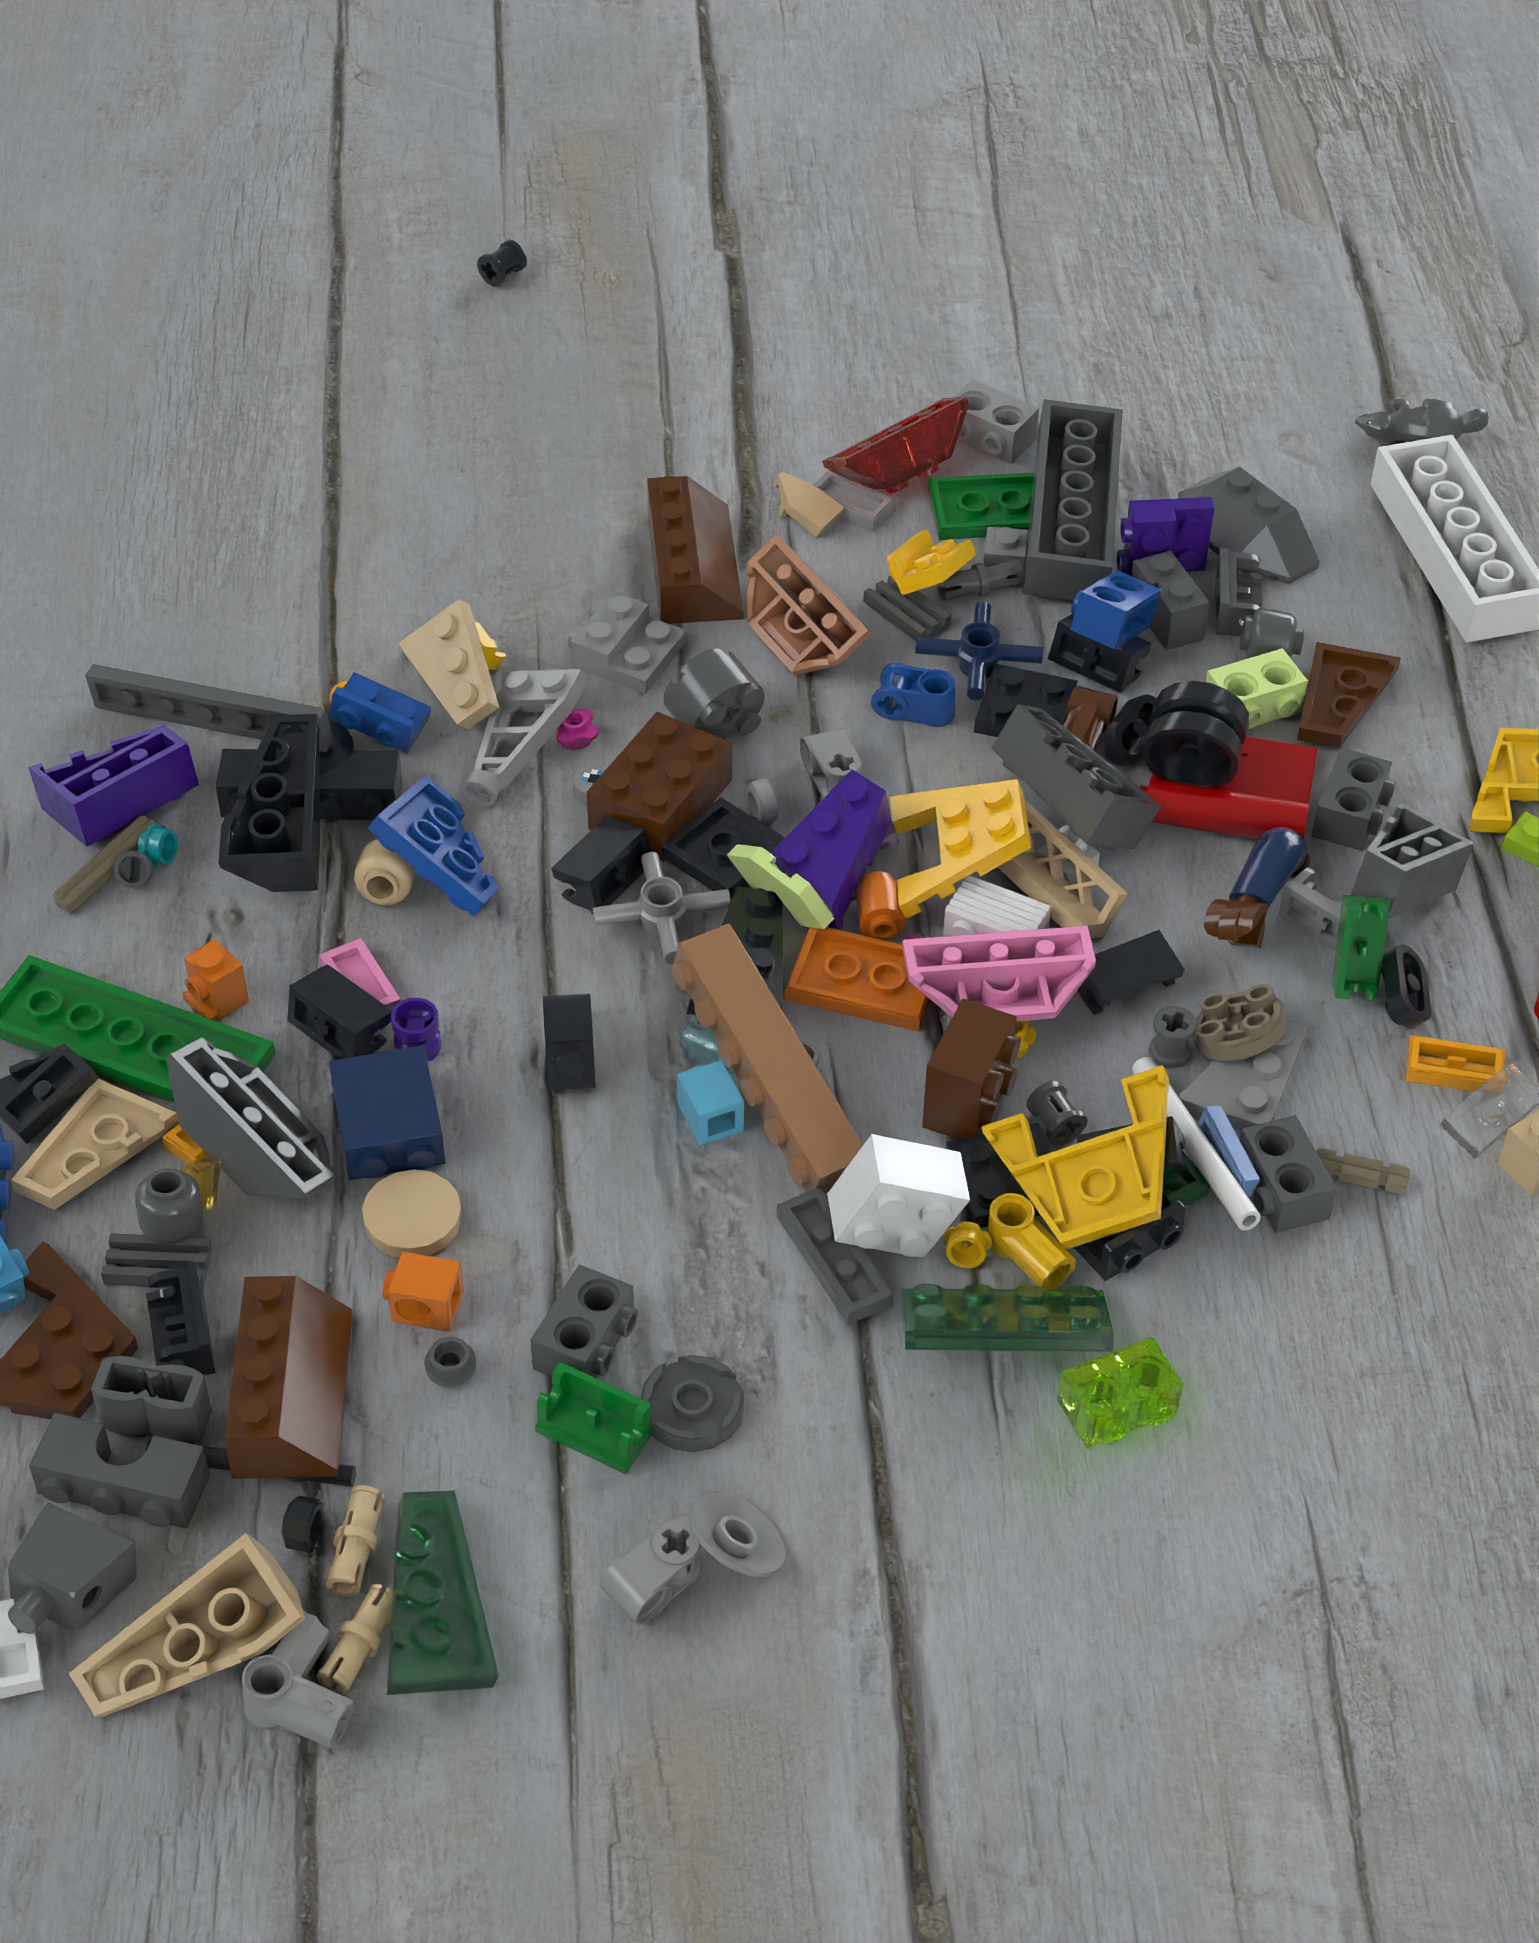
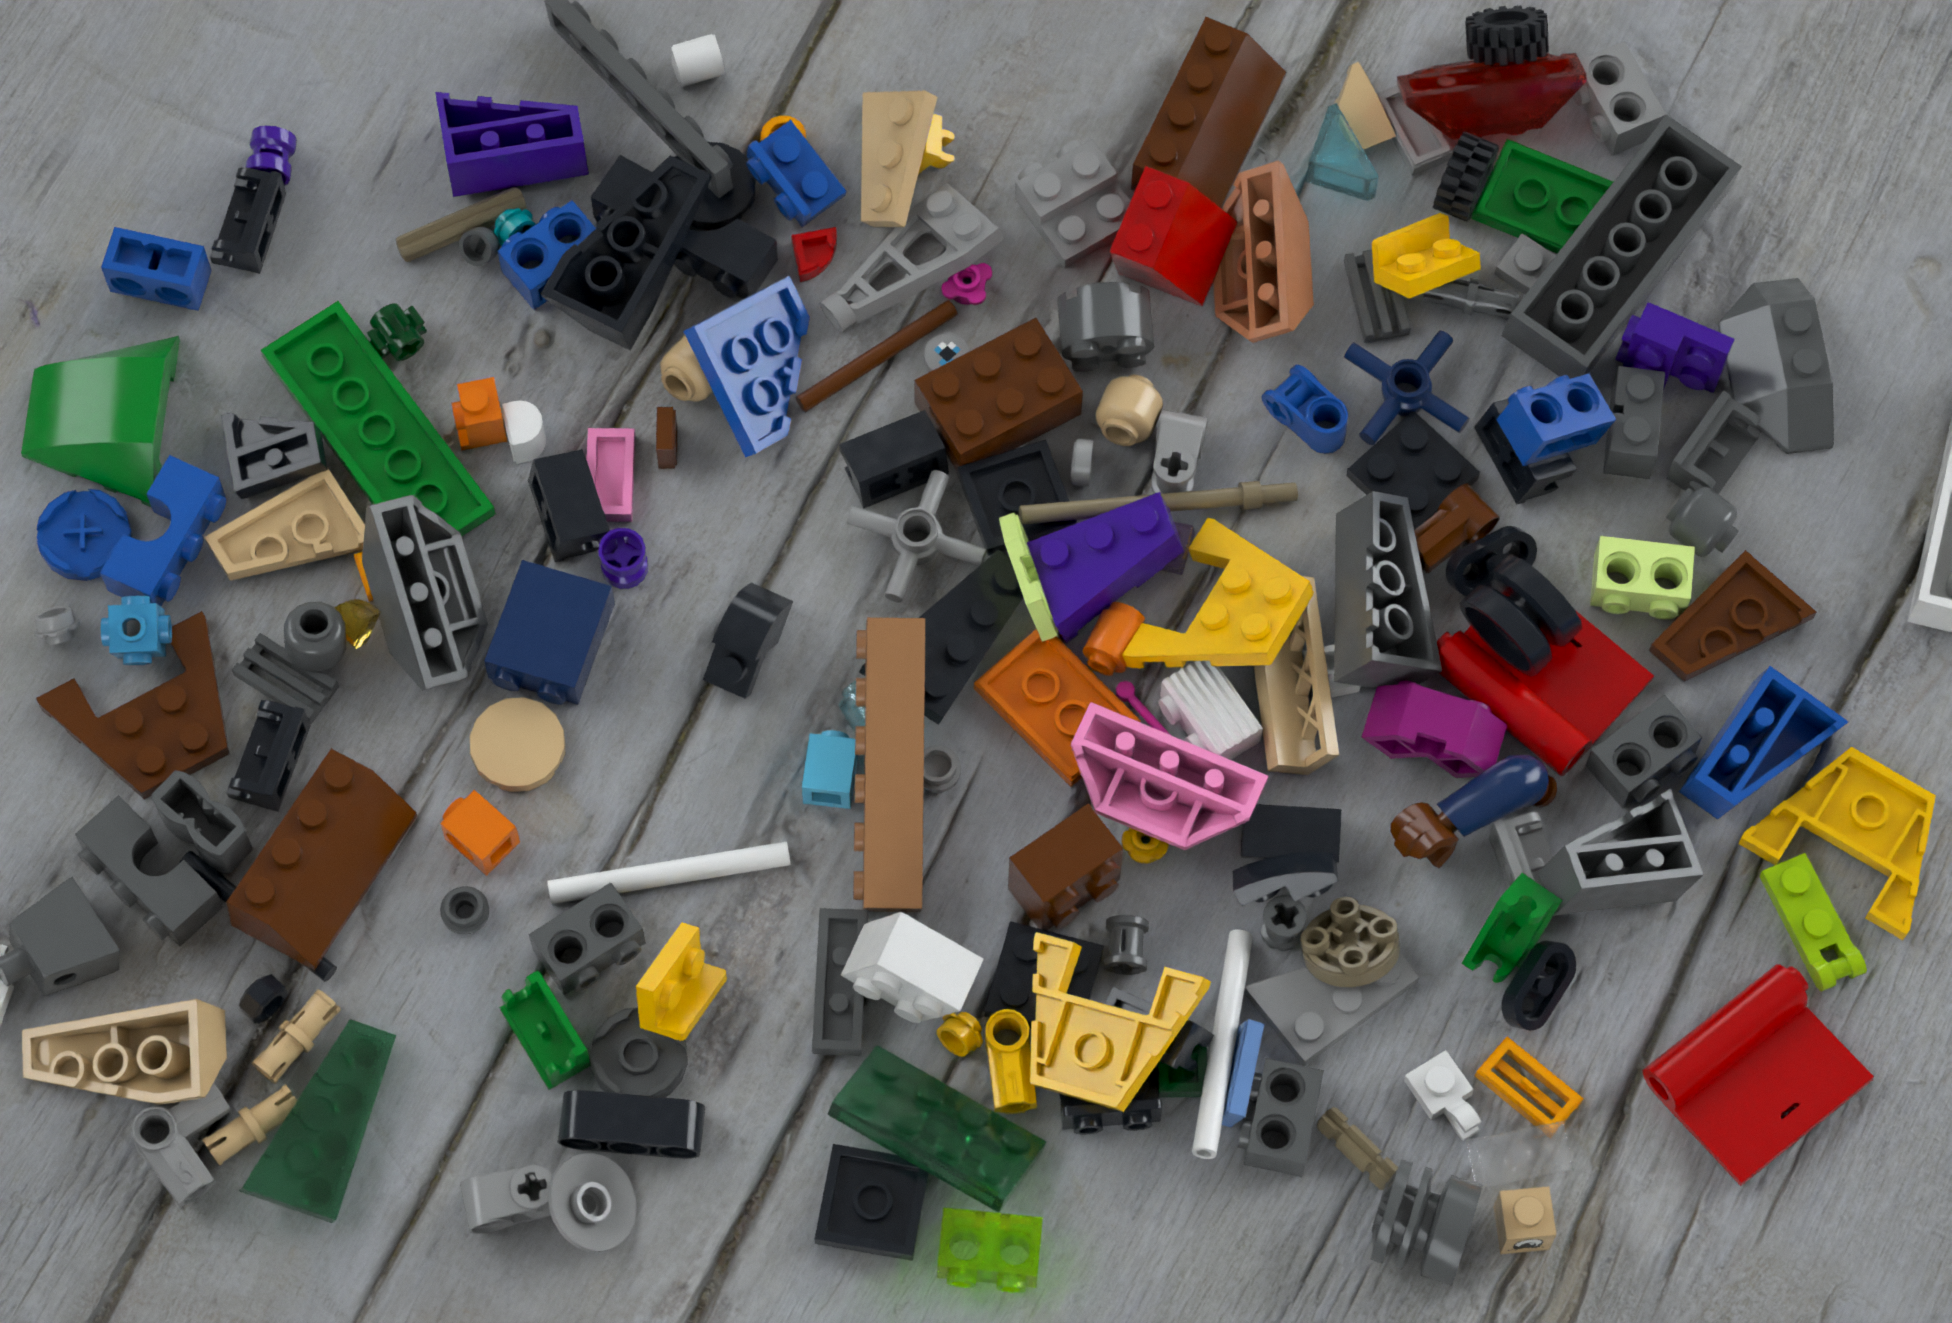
camera: 30 degrees right, 20 degrees up
(99, 953) = (397, 332): none -> dark green gear
(191, 853) = (542, 245): none -> blue brick
(244, 669) = (697, 60): none -> white brick
(263, 977) = (523, 430): none -> white brick
(395, 930) = (666, 437): none -> reddish brown tile
(429, 760) = (814, 251): none -> red tile
(533, 808) = (876, 355): none -> reddish brown bar
(622, 1244) = (671, 872): none -> white piece
(698, 1324) = (678, 986): none -> yellow bracket
(726, 611) = (1172, 237): none -> red slope
(727, 1454) = (631, 1124): none -> black beam
(773, 750) = (1129, 410): none -> tan head
(817, 533) = (1340, 160): none -> clear light blue slope
(883, 409) = (1507, 35): none -> black tyre
(907, 772) = (1247, 496): none -> dark tan bar
(921, 499) = (1465, 176): none -> black tyre
(989, 1410) = (871, 1203): none -> black plate
(1164, 988) = (1300, 872): none -> black slope
(1177, 843) = (1431, 724): none -> magenta brick
(1395, 1097) = (1443, 1089): none -> white plate
(1432, 747) = (1758, 741): none -> blue wedge
(1469, 1182) = (1425, 1222): none -> dark grey wheel

